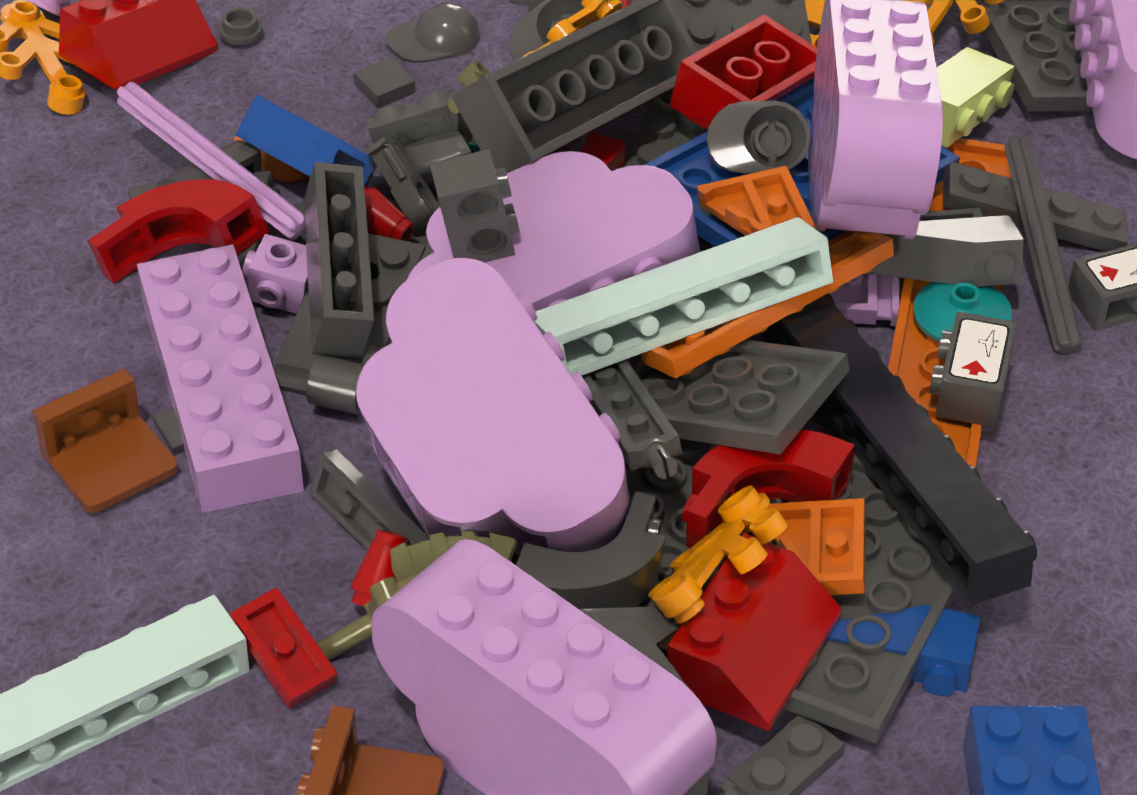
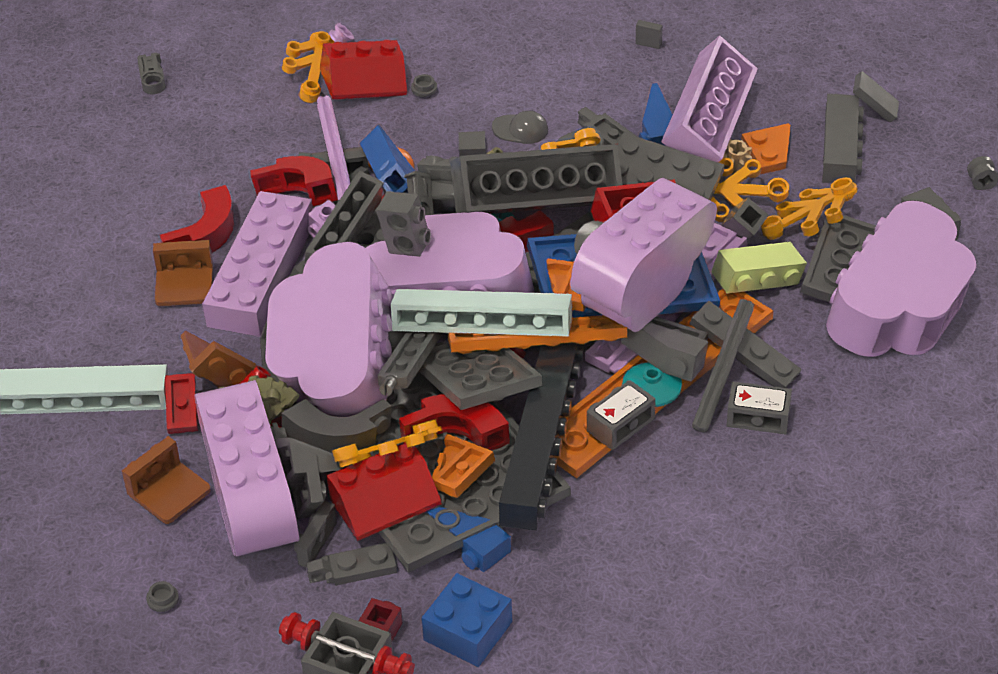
camera: 35 degrees right, 0 degrees up
(81, 329) = (213, 226): none -> red arch
(312, 560) = (215, 361): none -> dark orange bracket

